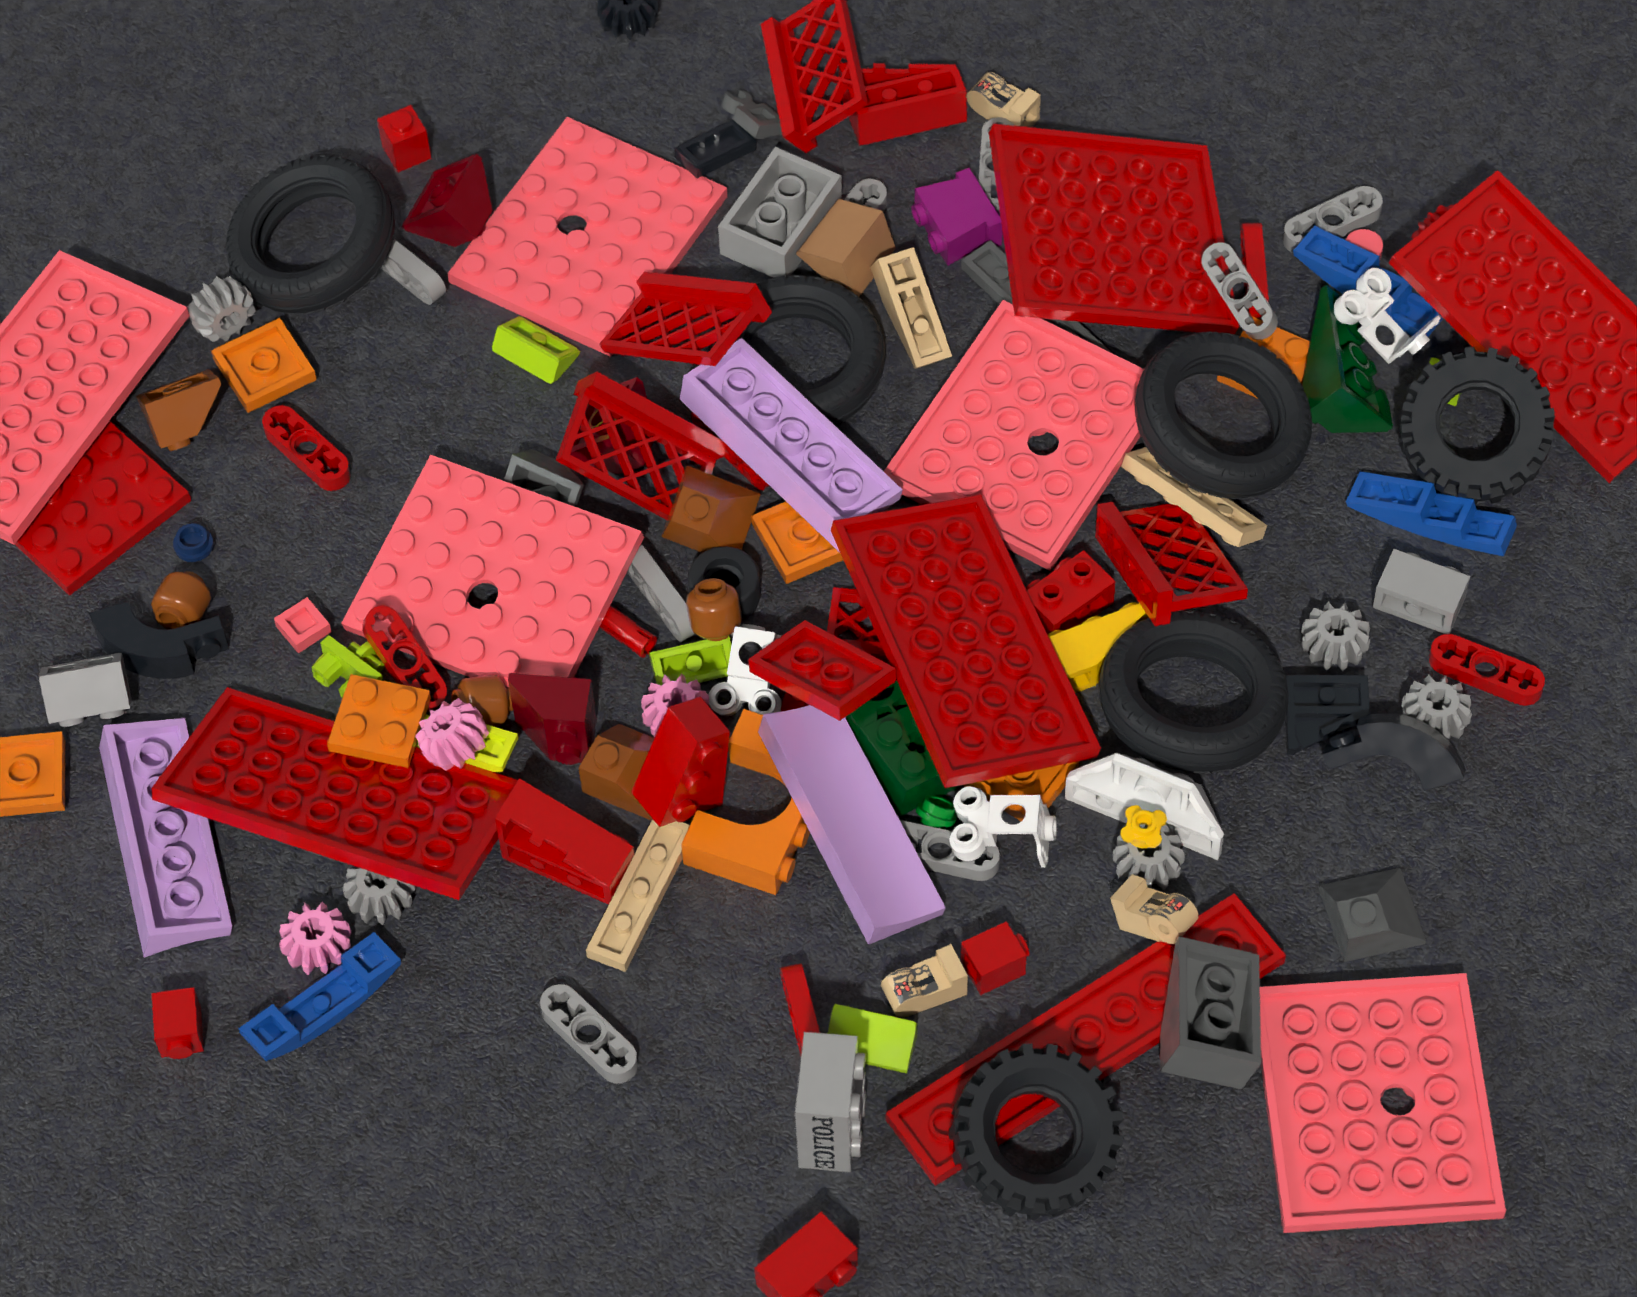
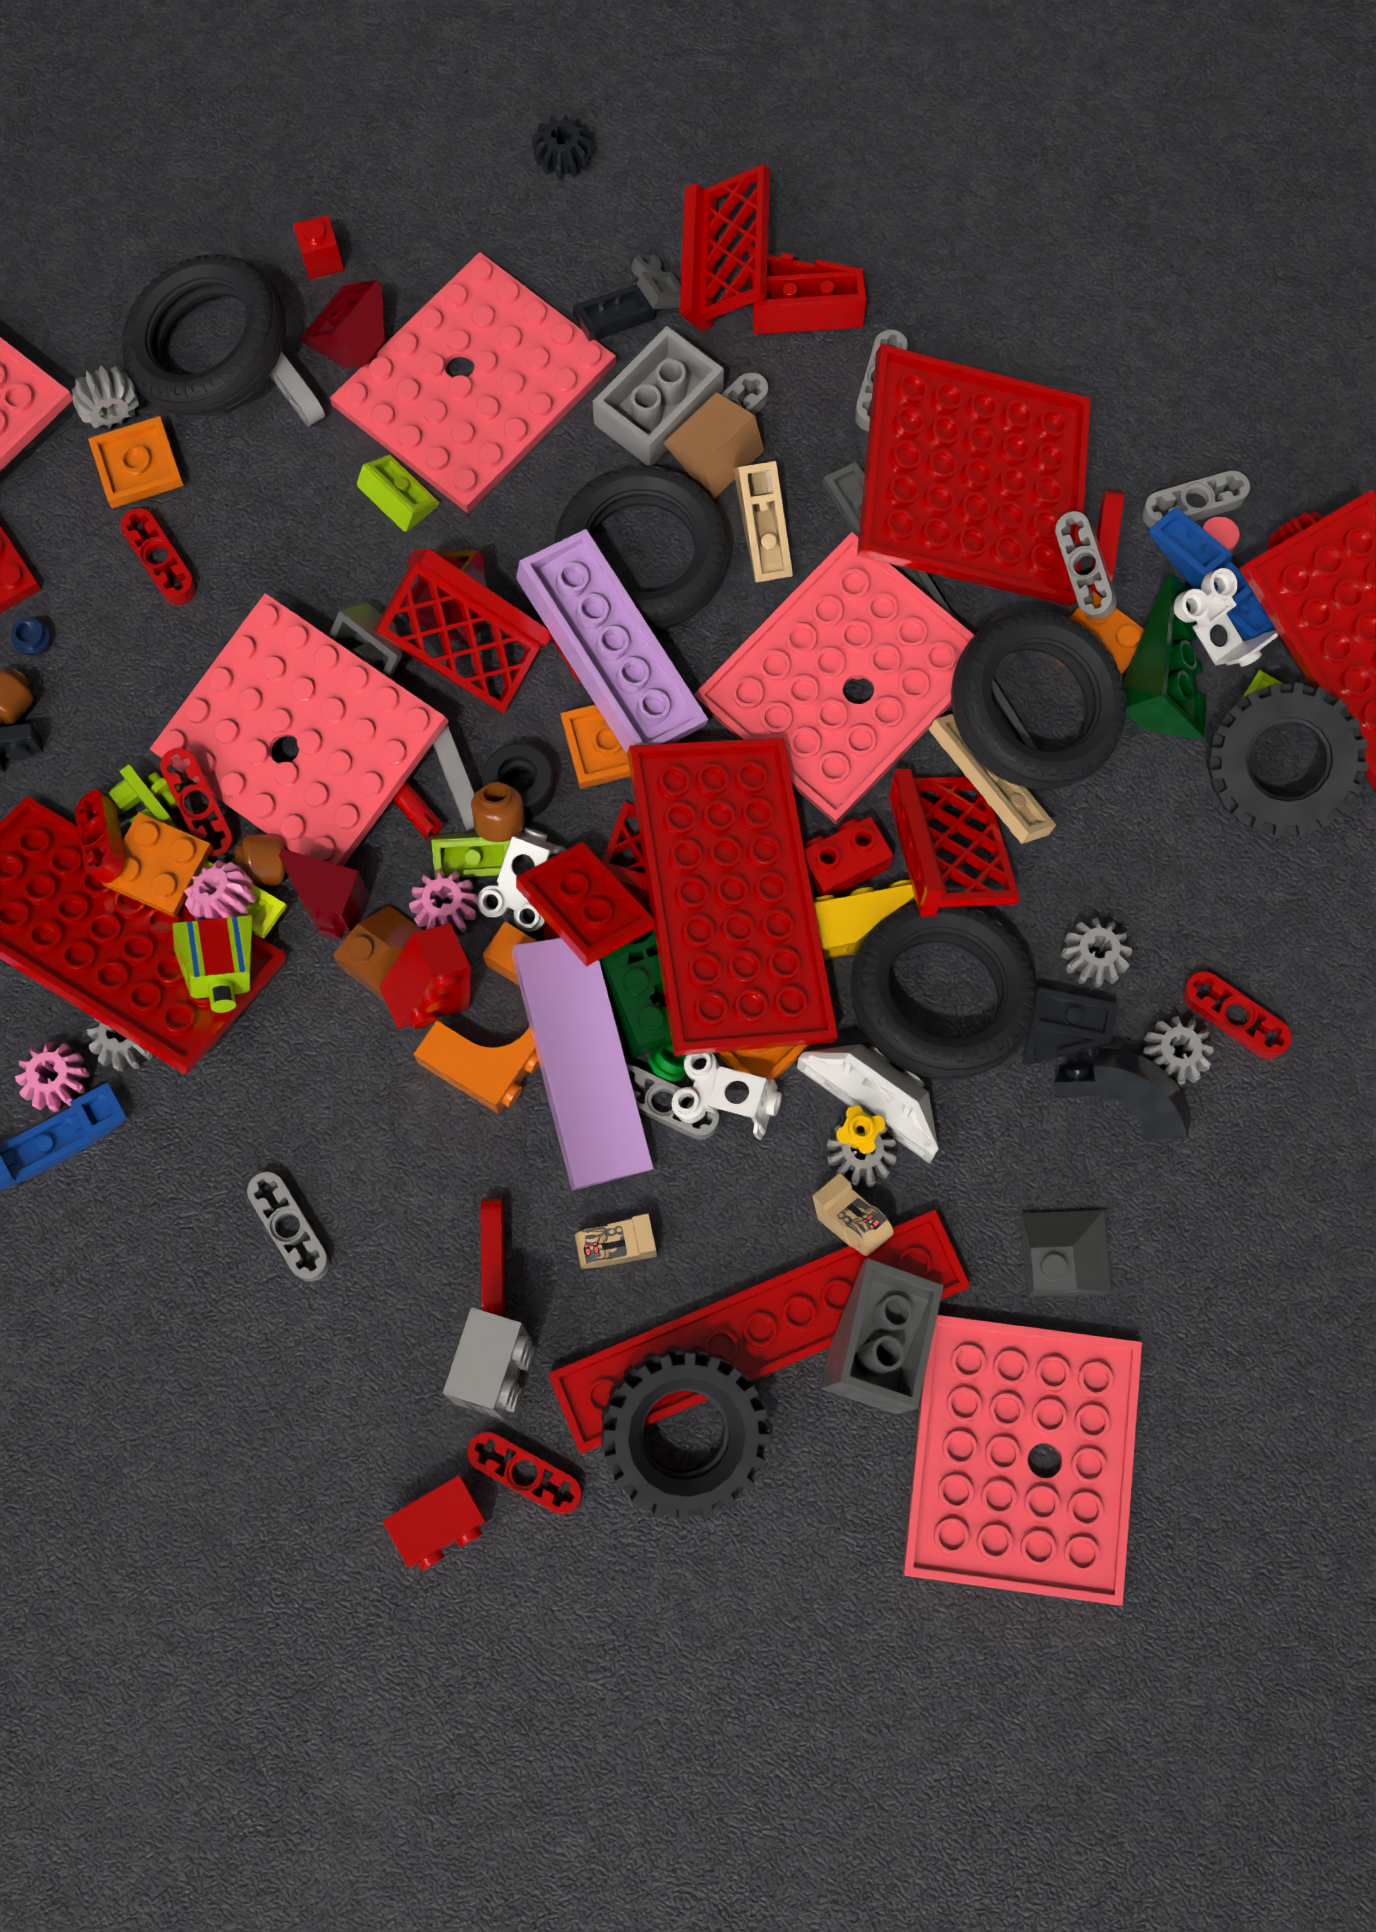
camera: 10 degrees right, 15 degrees up
(179, 408) = (42, 492): dark orange slope -> none
(302, 625) = (112, 743): coral plate -> none
(327, 706) = (100, 836): none -> red beam
(461, 789) = (215, 958): none -> torso
(561, 843) = (303, 1028): red wedge -> none
(638, 895) = (365, 1093): tan plate -> none
(690, 299) = (555, 477): red fence -> none
(710, 512) = (522, 703): dark orange slope -> none
(883, 1038) = (552, 1289): lime slope -> none
(892, 1229) = (491, 1468): none -> red beam
(956, 216) = (829, 429): magenta hips -> none
(994, 957) = (690, 1229): red brick -> none
(995, 98) = (900, 312): tan leg -> none
(1421, 591) = (1192, 922): light grey brick -> none
(1422, 511) = (1217, 836): blue slope -> none

